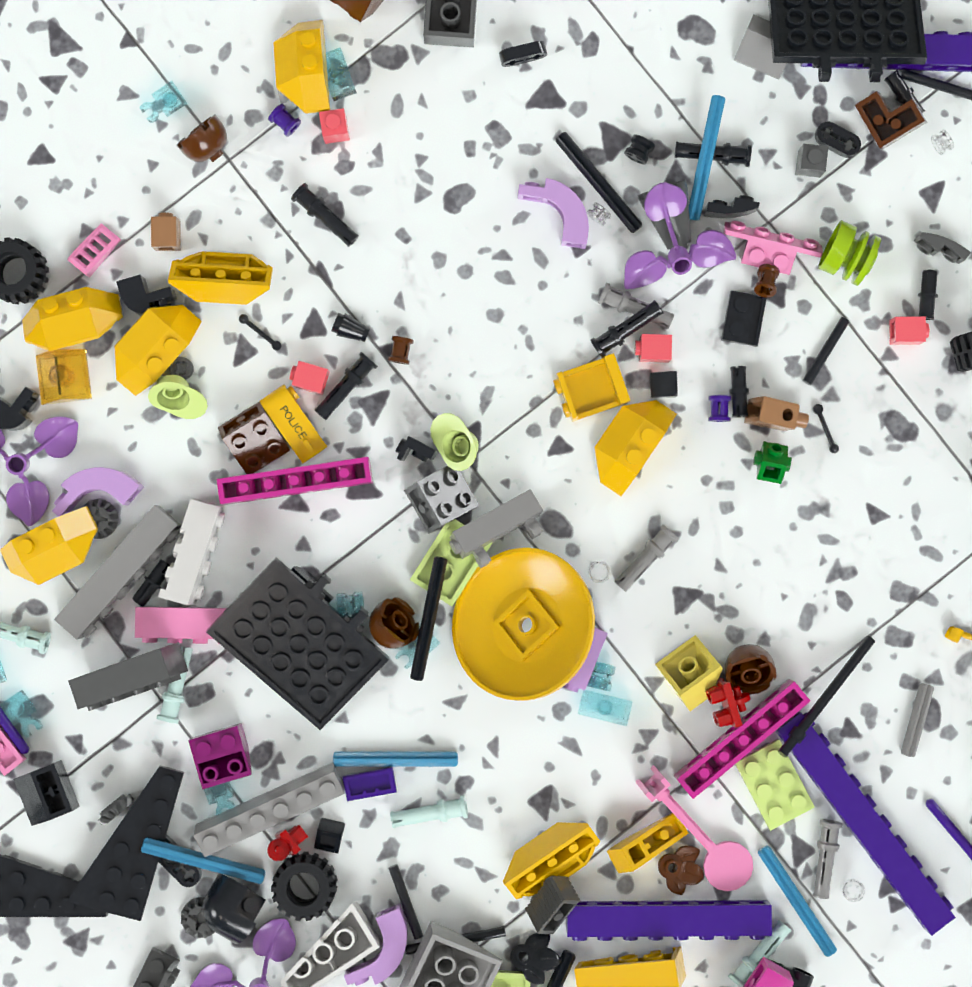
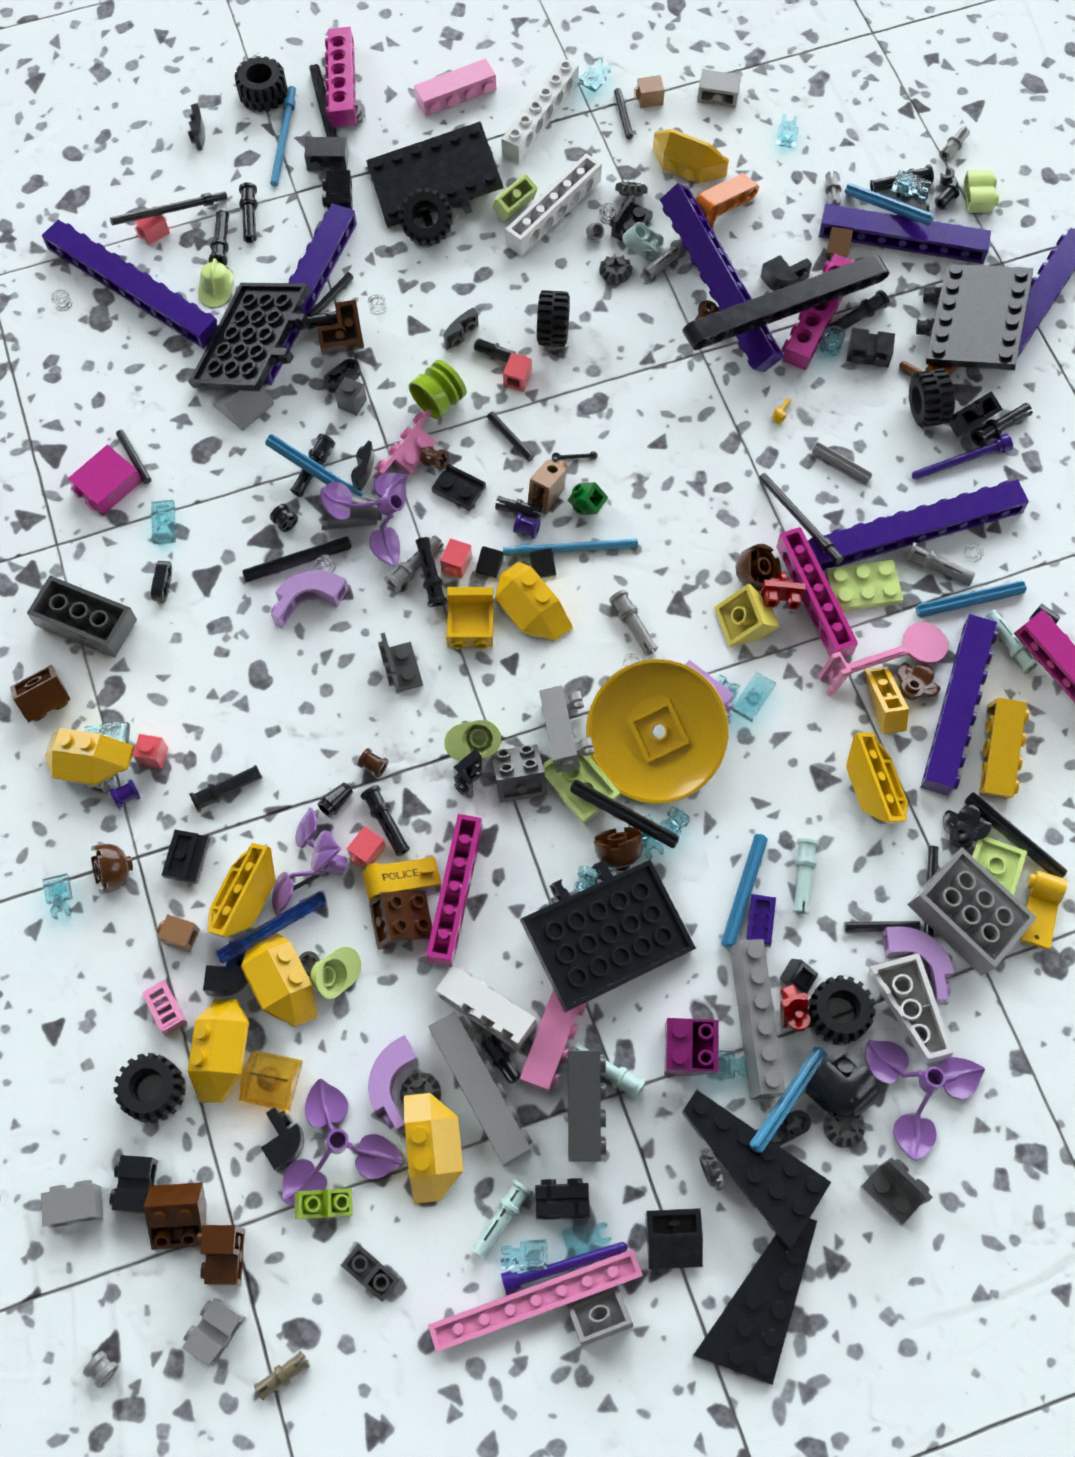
camera: 70 degrees left, 20 degrees down
(45, 682) = (562, 1200): none -> black brick
(197, 320) = (270, 927): none -> clear blue axle
(242, 207) = (186, 856): none -> black plate
(276, 346) = (323, 859): none -> medium lavender plant
(444, 671) = (675, 820): none -> clear light blue wheel
(514, 337) = (400, 665): none -> dark grey bracket
(552, 904) = (920, 791): dark grey brick -> none
(593, 24) = (163, 521): none -> clear light blue plate
(681, 440) = (543, 562): none -> black slope
(692, 416) = (526, 548): none -> dark azure bar

